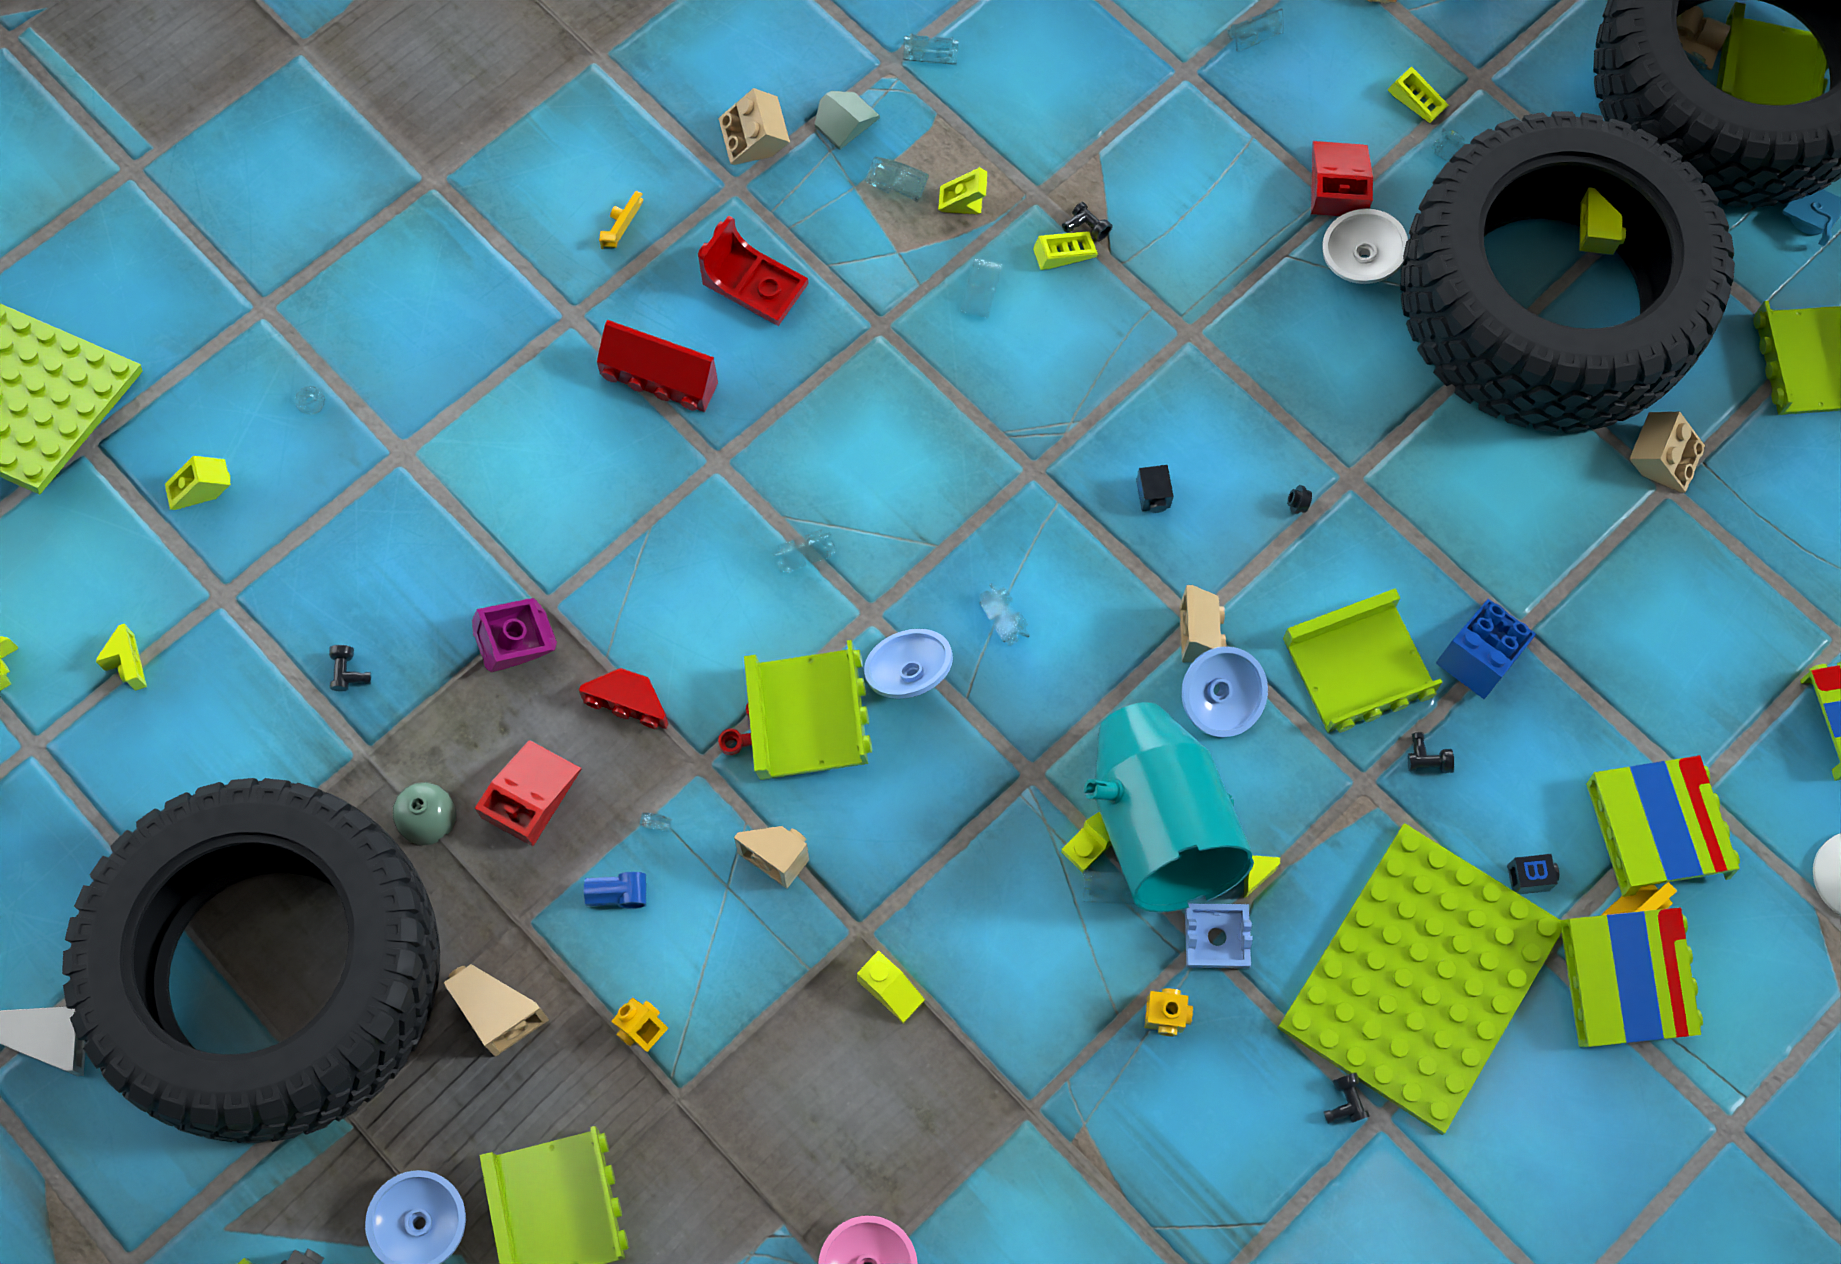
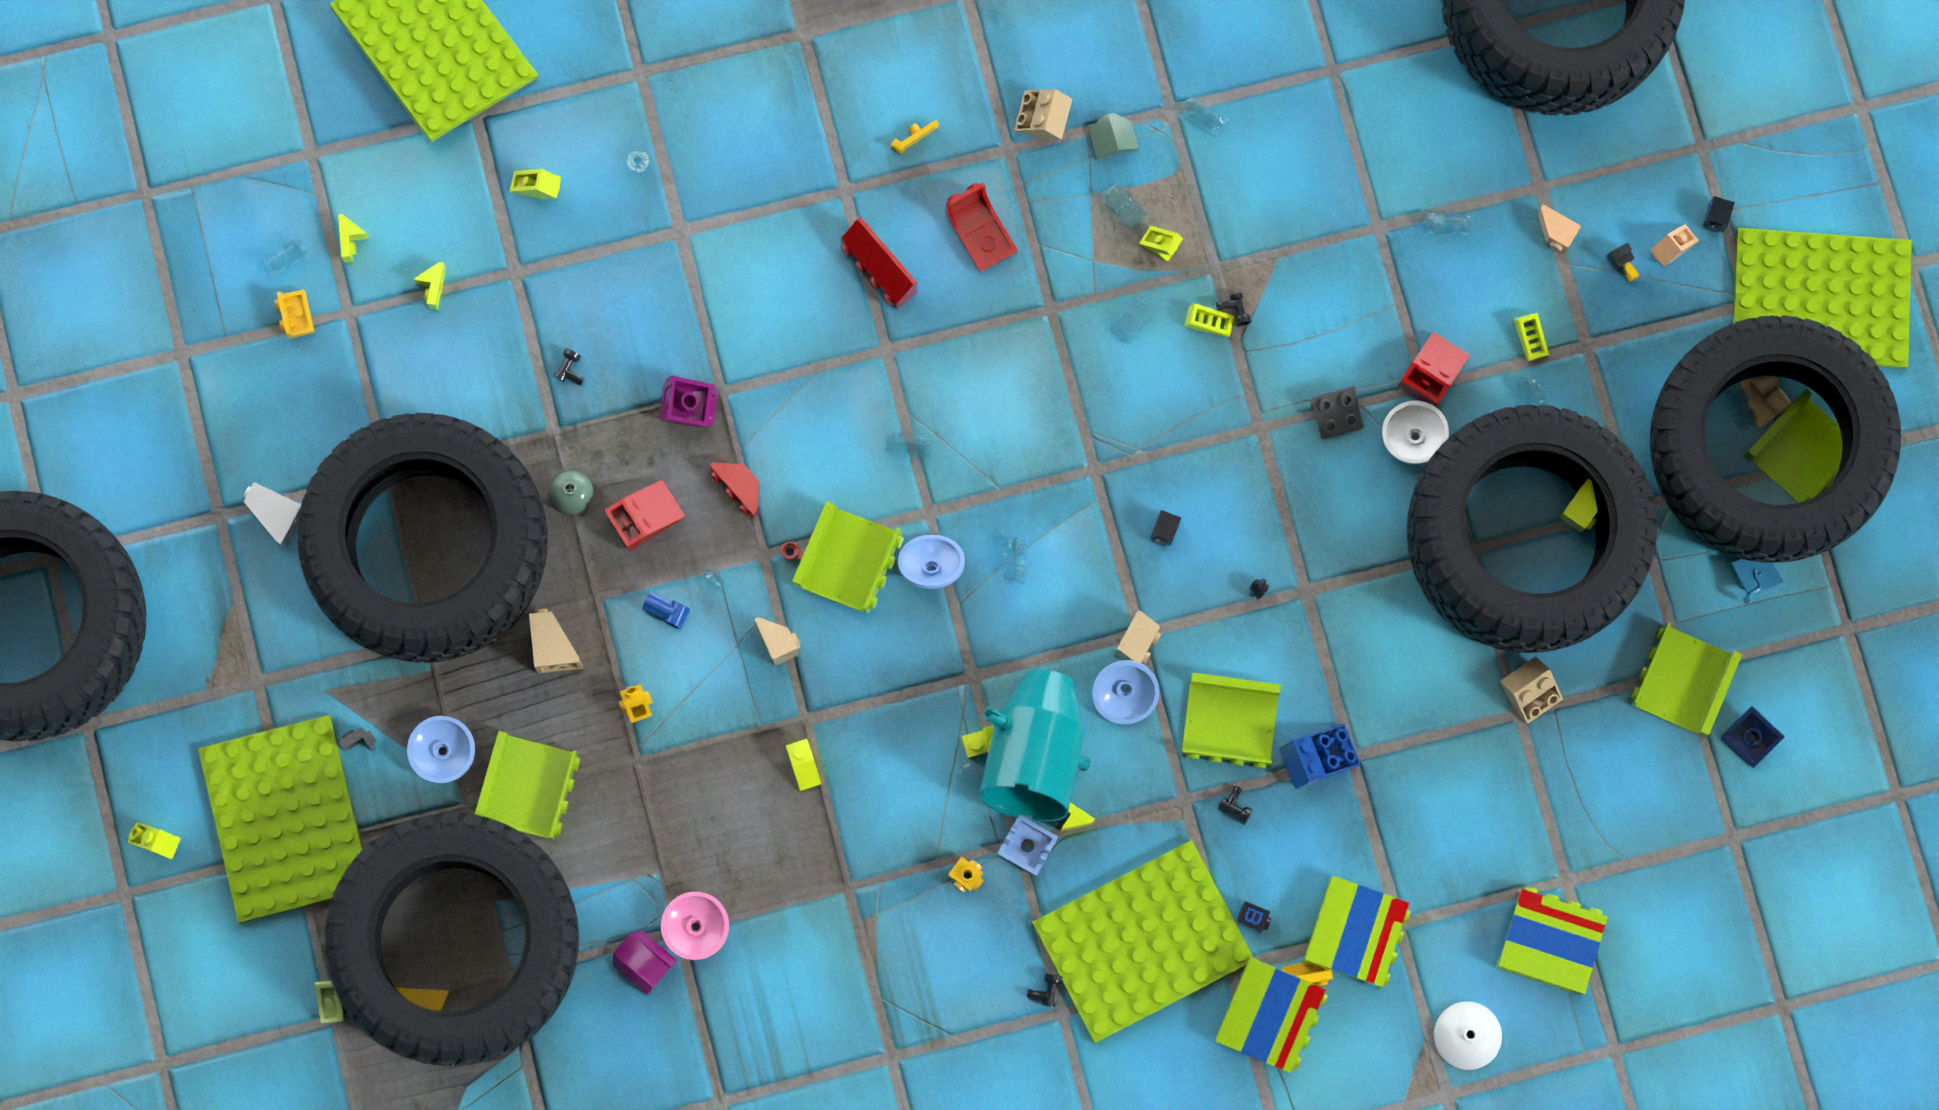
camera: 25 degrees right, 10 degrees up
(1264, 271) = (1337, 412): none -> dark grey hinge

